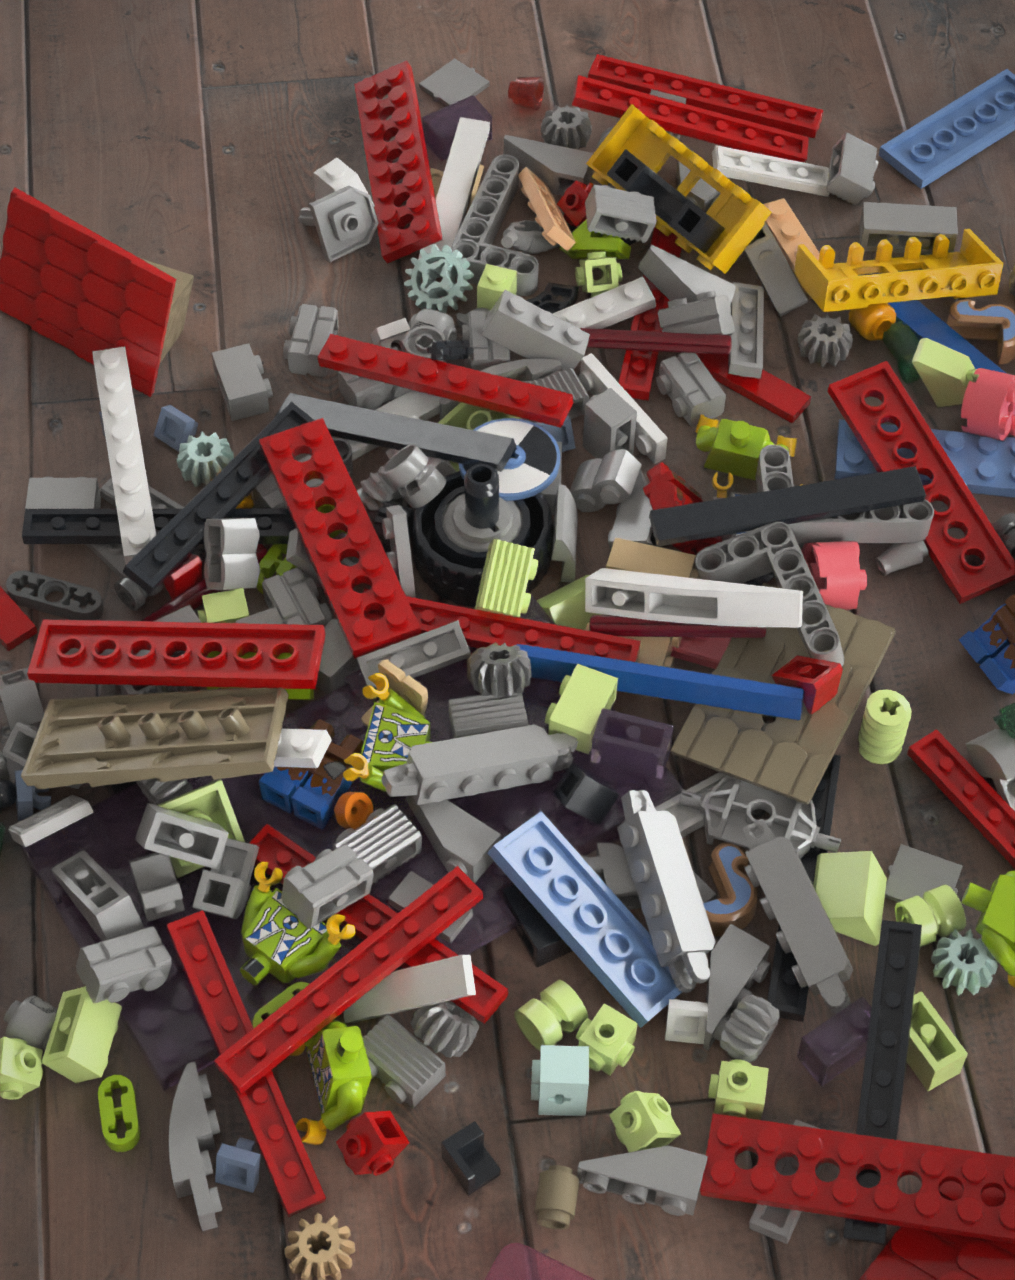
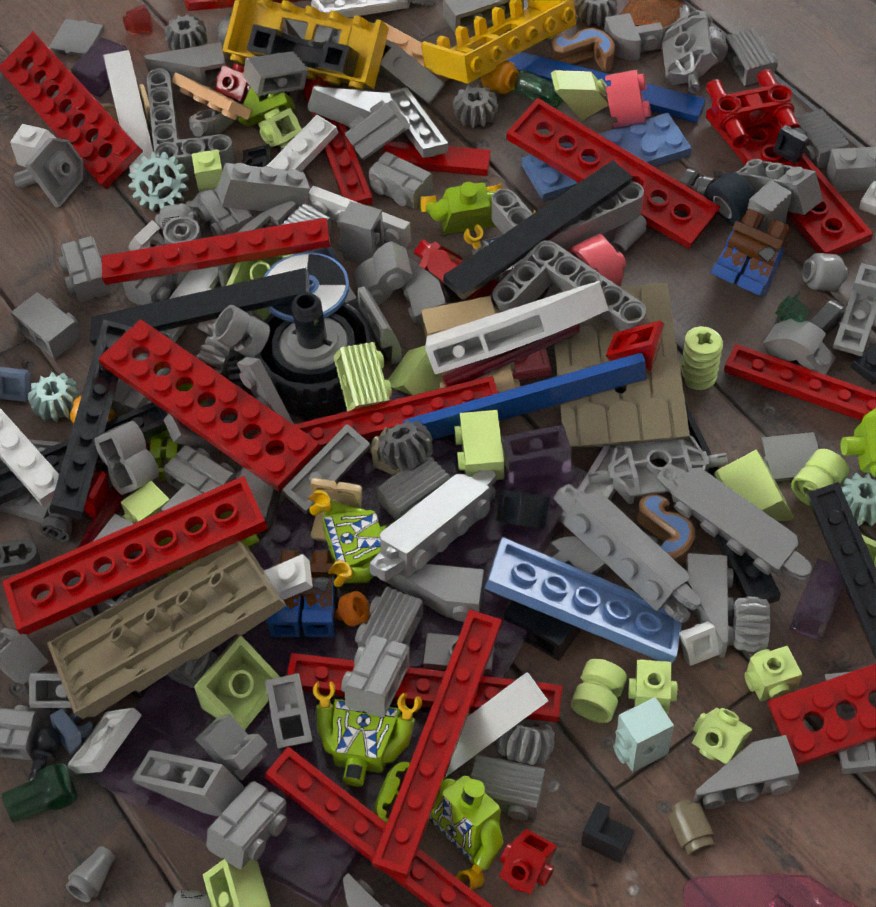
camera: 25 degrees left, 0 degrees up
(181, 836) = (236, 695): light grey brick -> none
(450, 350) = (206, 227): black axle -> none
(659, 341) = (360, 155): dark red axle -> none

